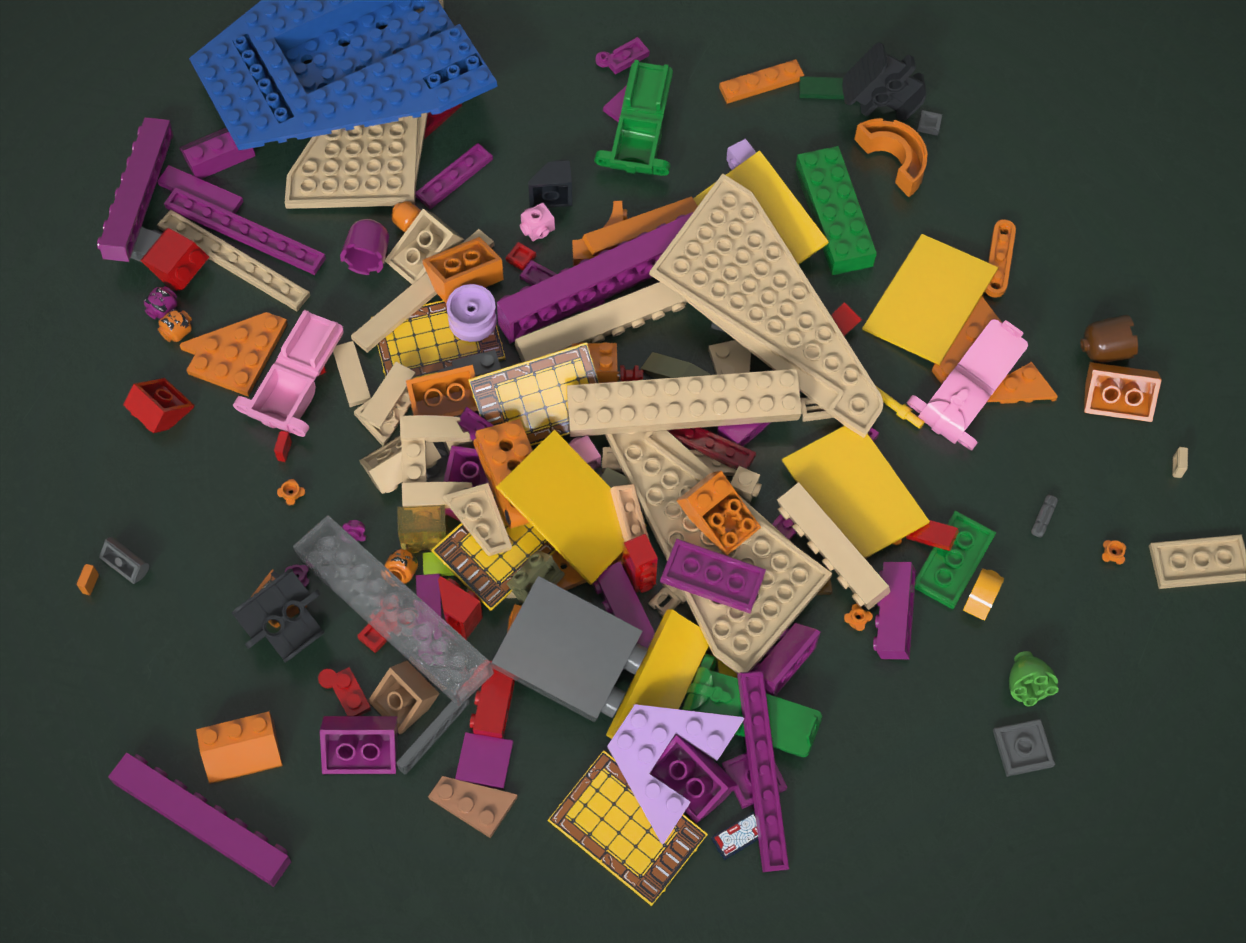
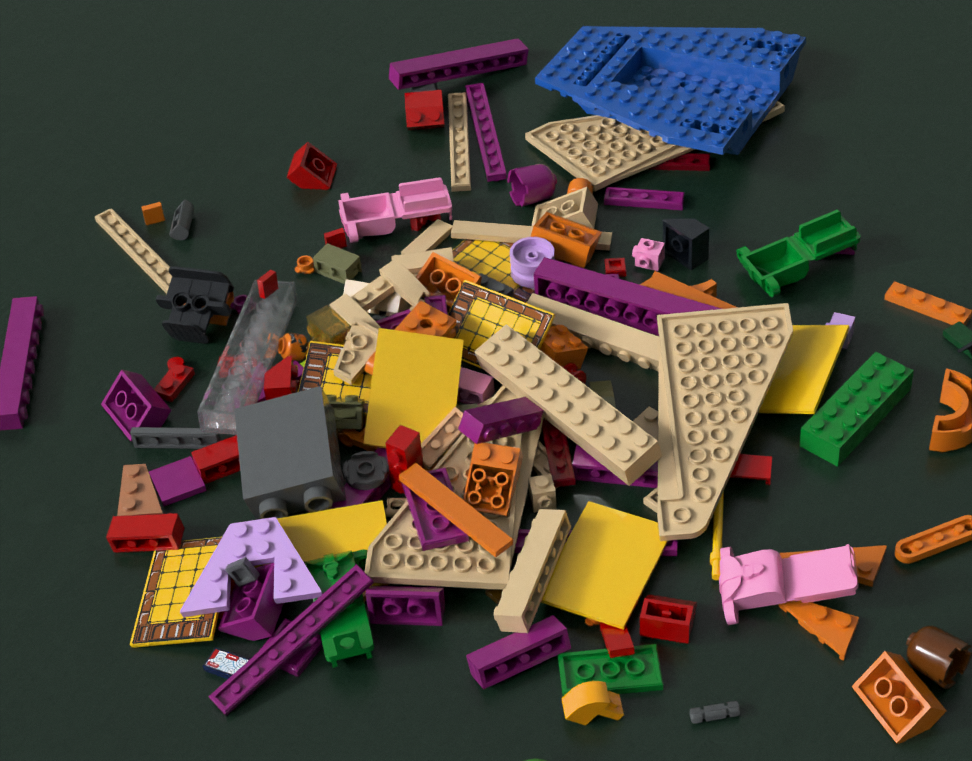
camera: 60 degrees right, 20 degrees down
(133, 622) = (135, 247): none -> tan tile
(160, 302) = (389, 127): magenta head -> none
(175, 325) = (379, 143): orange head -> none
(176, 178) = (496, 97): magenta tile -> none
(213, 154) = (521, 84): magenta slope -> none
(236, 353) = (383, 176): orange wing -> none
(239, 747) = (86, 349): orange slope -> none
(318, 464) = (337, 263): none -> olive hinge
(322, 539) = (267, 284): none -> red tile
(355, 529) = (302, 310): magenta plate -> none
(403, 694) = (186, 406): medium nougat slope -> none
(537, 821) = (145, 532): none -> red brick
(620, 598) = (365, 470): none -> dark grey tile
(623, 56) = (862, 221): magenta hinge -> none
(665, 767) = (242, 571): none -> dark grey tile
(675, 463) = (500, 420): none -> magenta brick
(734, 561) = (456, 510): none -> orange tile
(858, 624) = (489, 638): orange plate -> none
(930, 299) = (845, 513): yellow piece -> none
(939, 483) = (667, 618): none -> red slope

